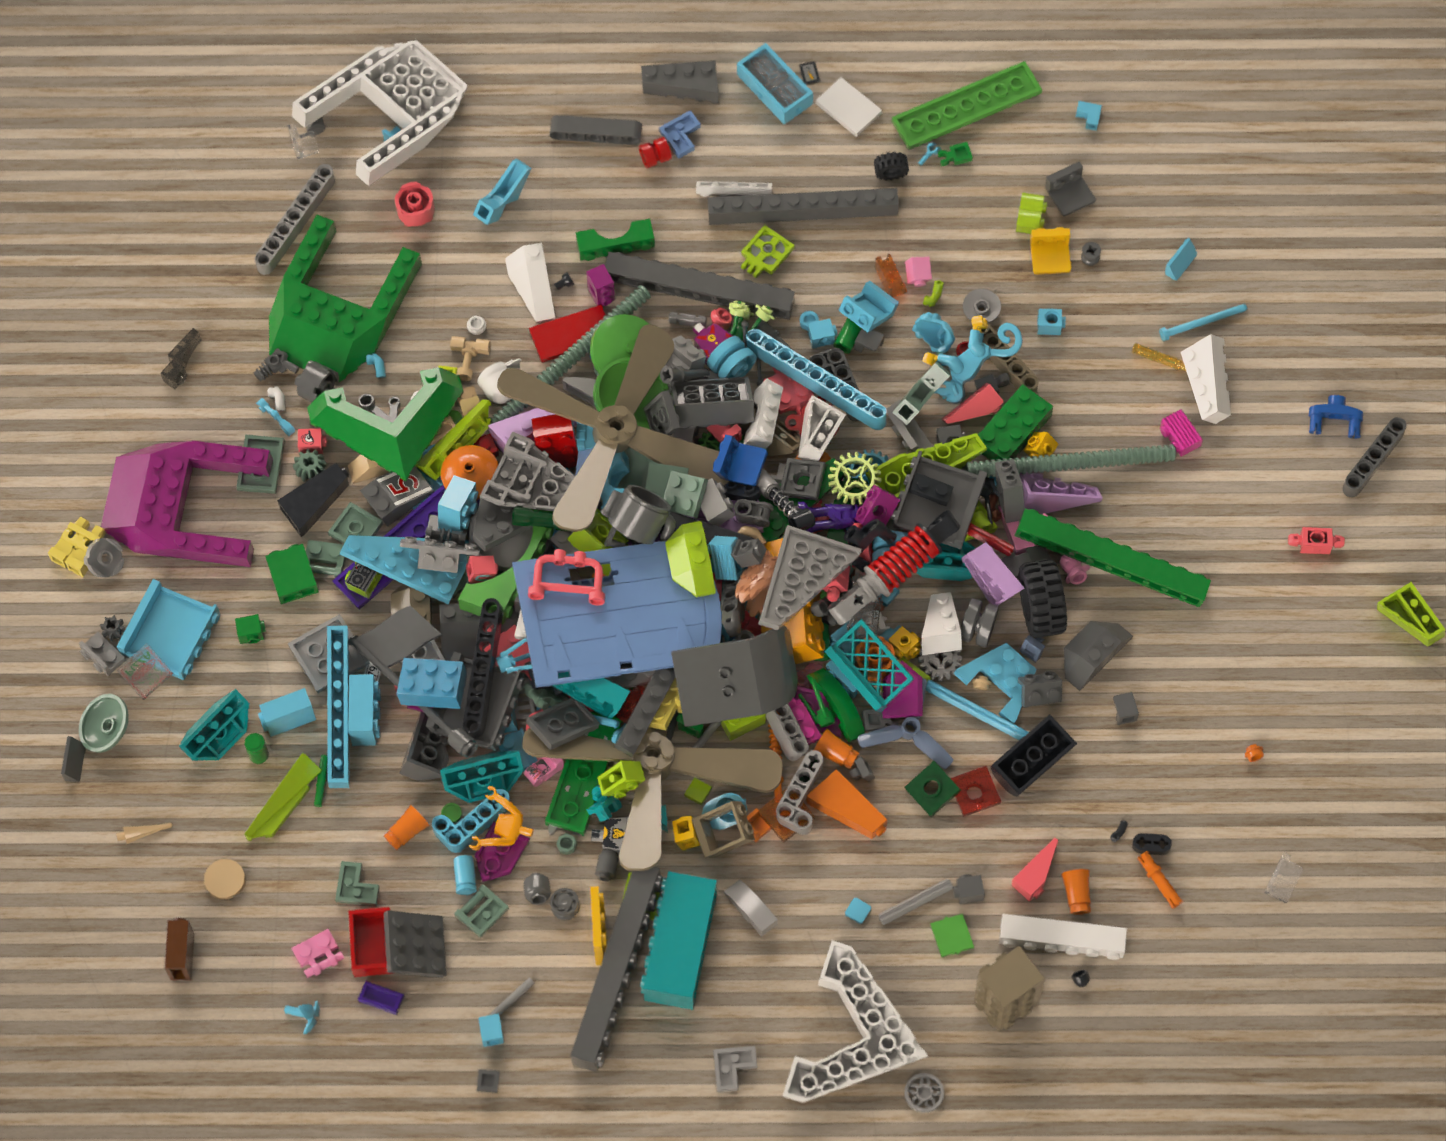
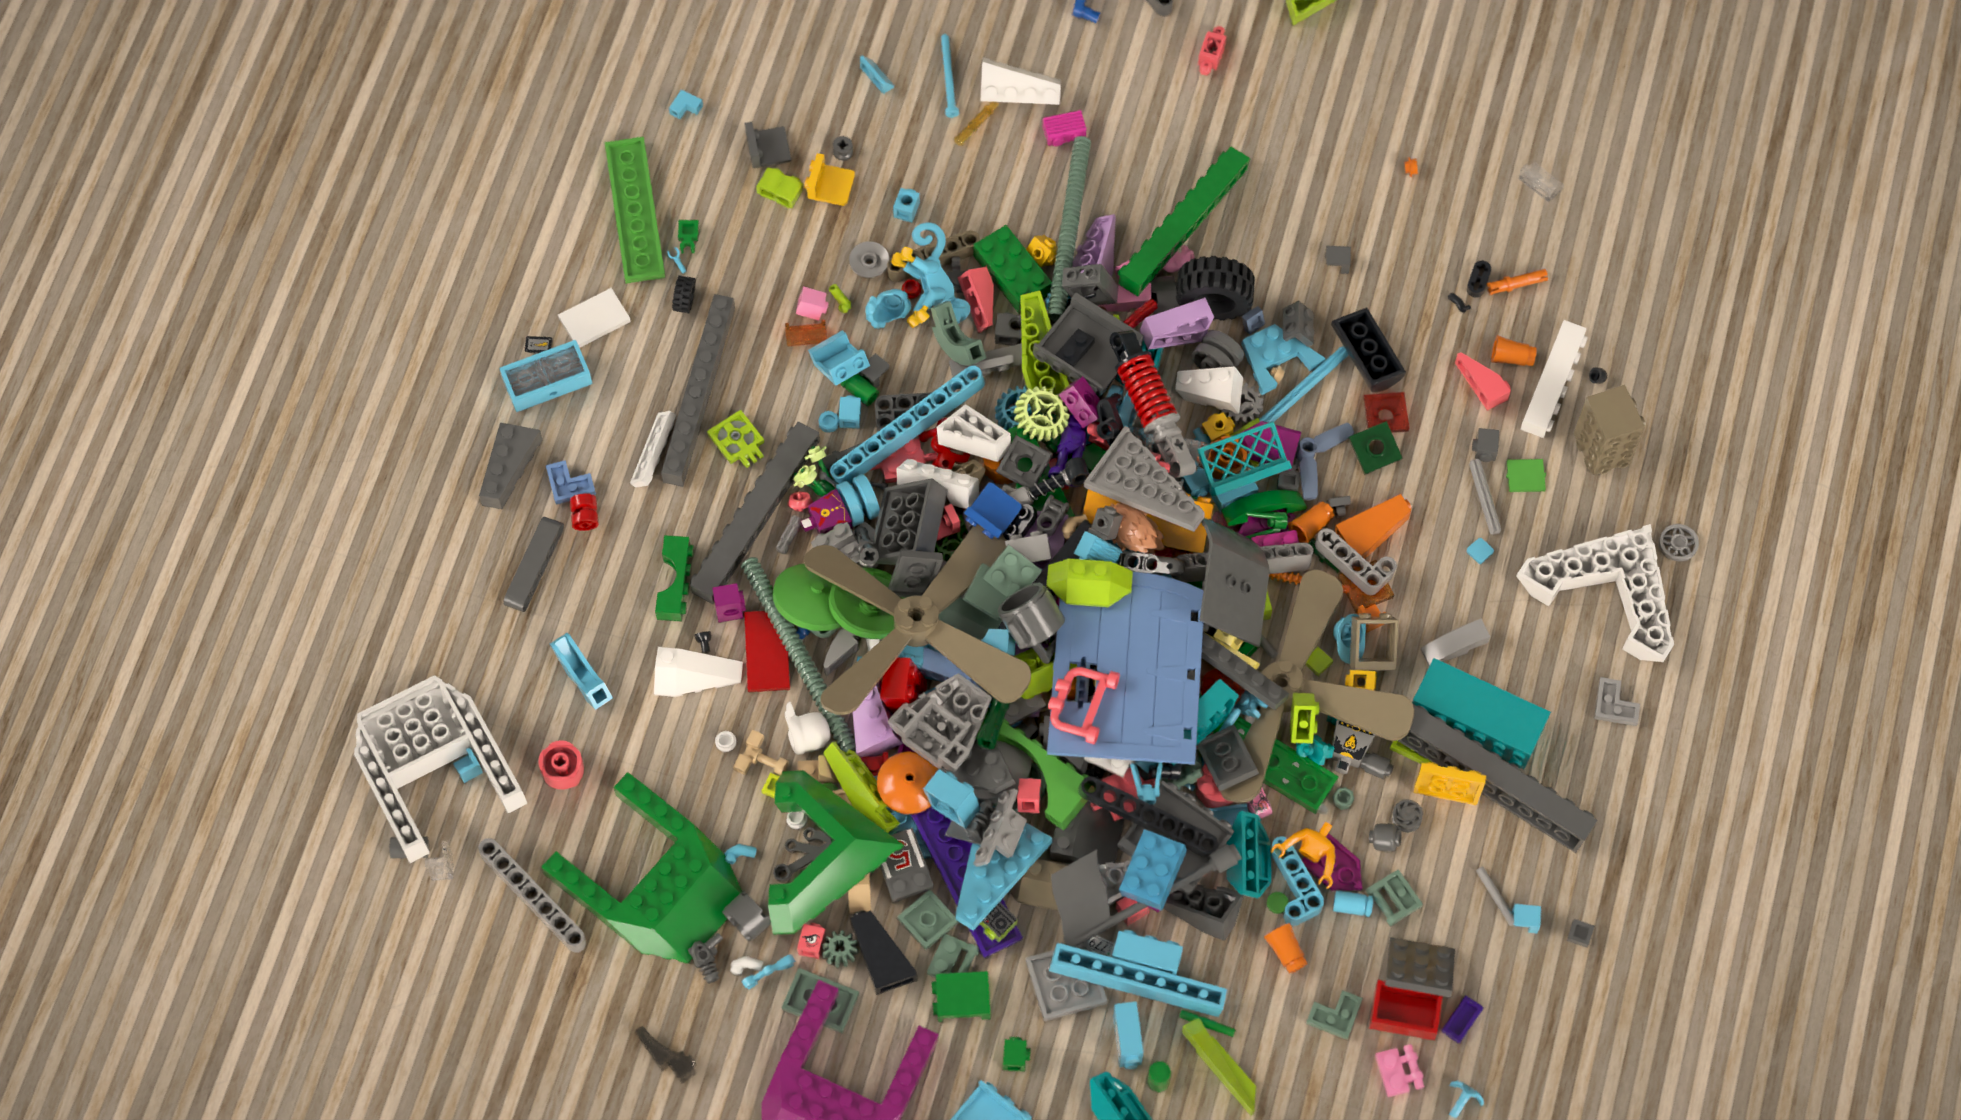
camera: 75 degrees left, 0 degrees up
(1092, 651) = (1272, 269): dark grey wedge -> none

